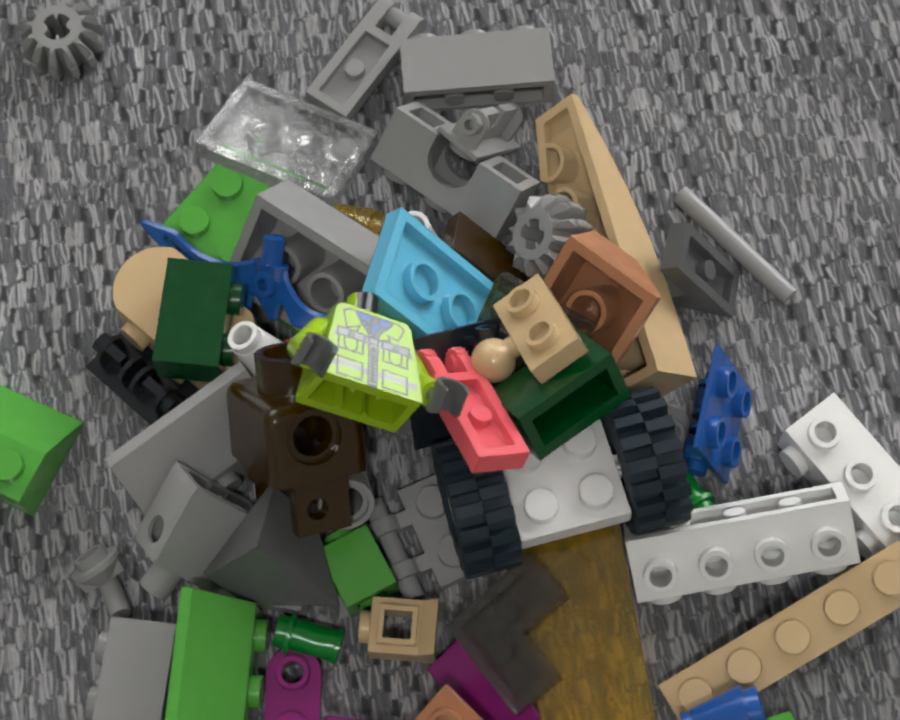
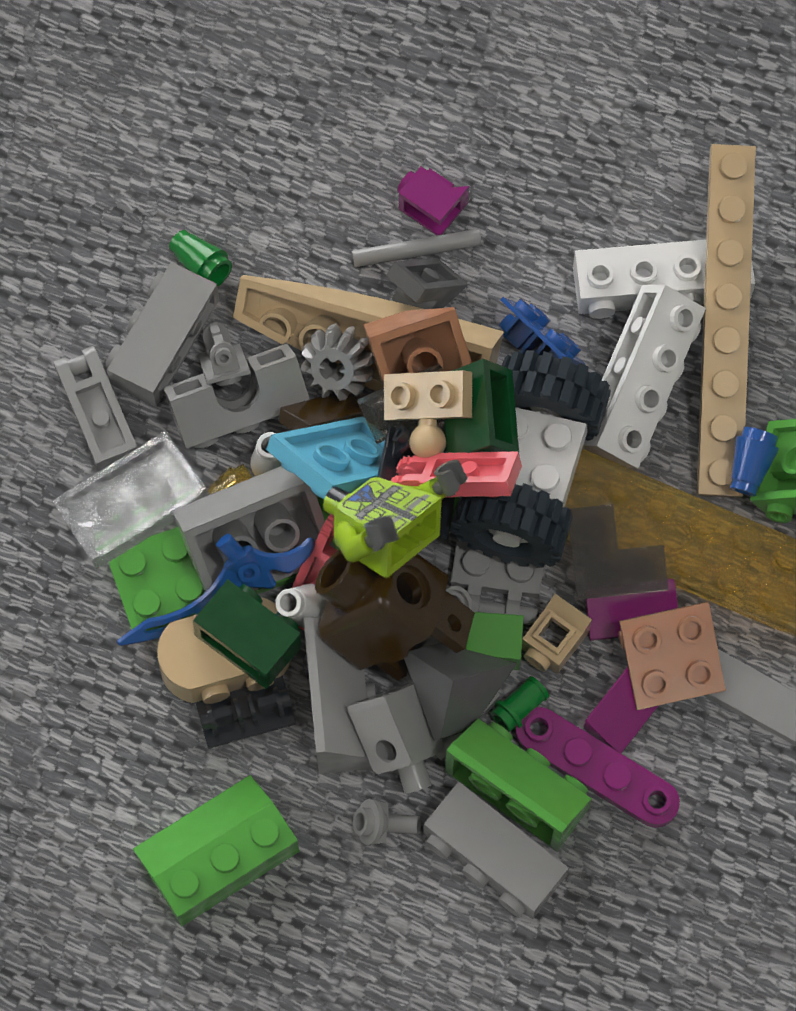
camera: 60 degrees left, 0 degrees up
(578, 58) = (201, 257): none -> green cone
(793, 225) = (431, 199): none -> magenta window

